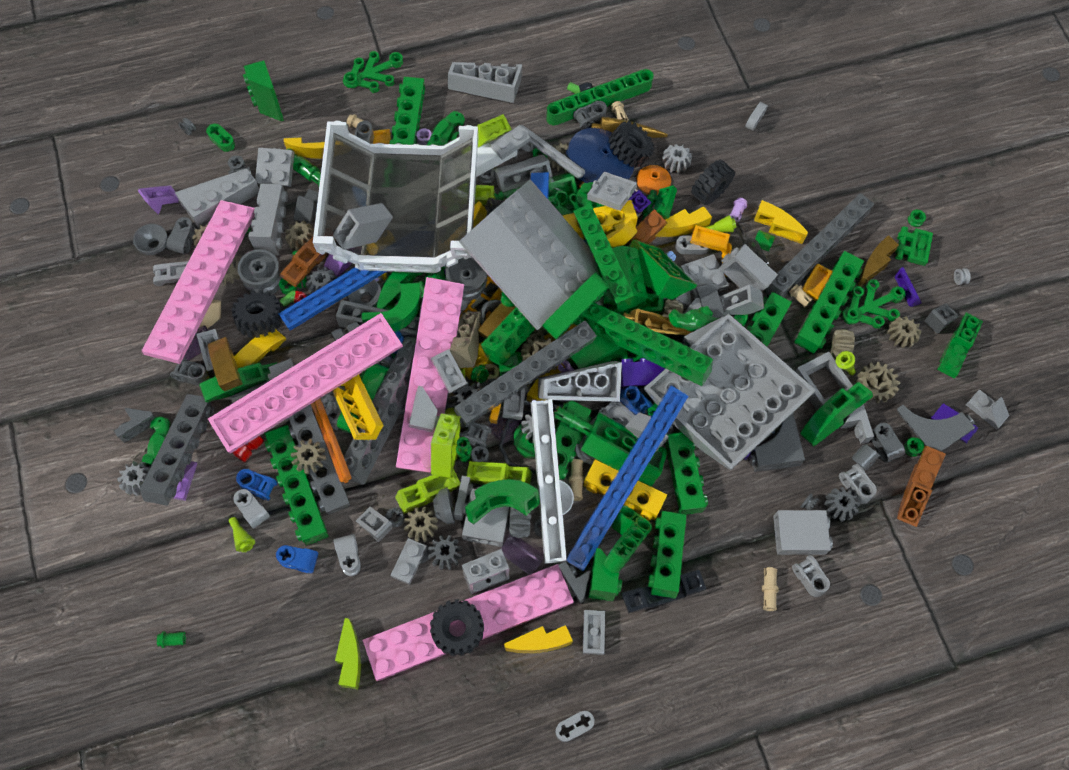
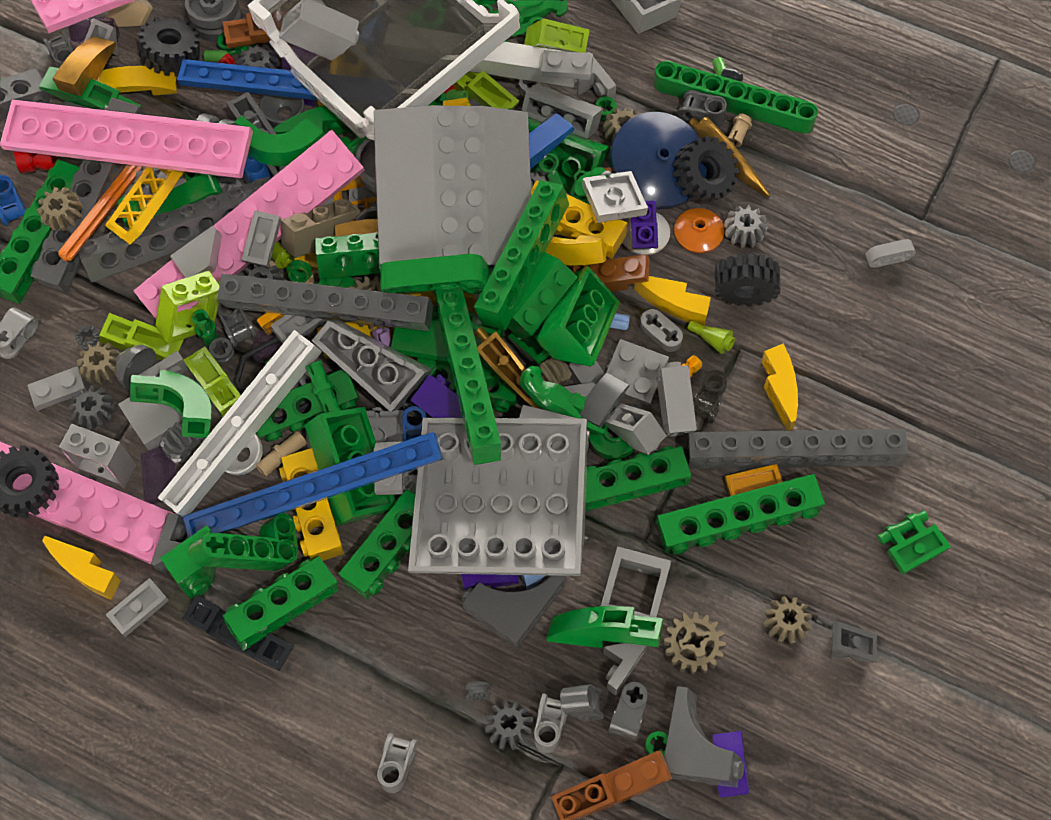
camera: 50 degrees right, 0 degrees up
(375, 524) = (60, 328): light grey slope -> none
(554, 154) = (606, 110): light grey axle -> none
(577, 731) = (31, 667): light grey beam -> none
(663, 202) = (670, 256): green plate -> none
(710, 238) = (682, 337): light orange tile -> none
(739, 206) = (753, 334): lavender pin -> none
(765, 240) = (746, 391): green slope -> none
(770, 589) = (342, 733): tan pin -> none
(800, 295) = (716, 480): tan pin -> none
(802, 532) = (436, 712): light grey brick -> none
(842, 341) = (696, 569): dark tan gear -> none
(846, 361) = (674, 587): lime cone -> none
(872, 306) = (785, 561): green plant -> none
(878, 260) = (847, 519): pearl gold slope -> none
(910, 293) = (853, 581): dark purple slope -> none
(914, 222) = (951, 523): green bush -> none
(959, 345) = (835, 691): green slope -> none
(962, 276) = (931, 623): light grey bush -> none
(991, 411) = (792, 788): light grey slope -> none

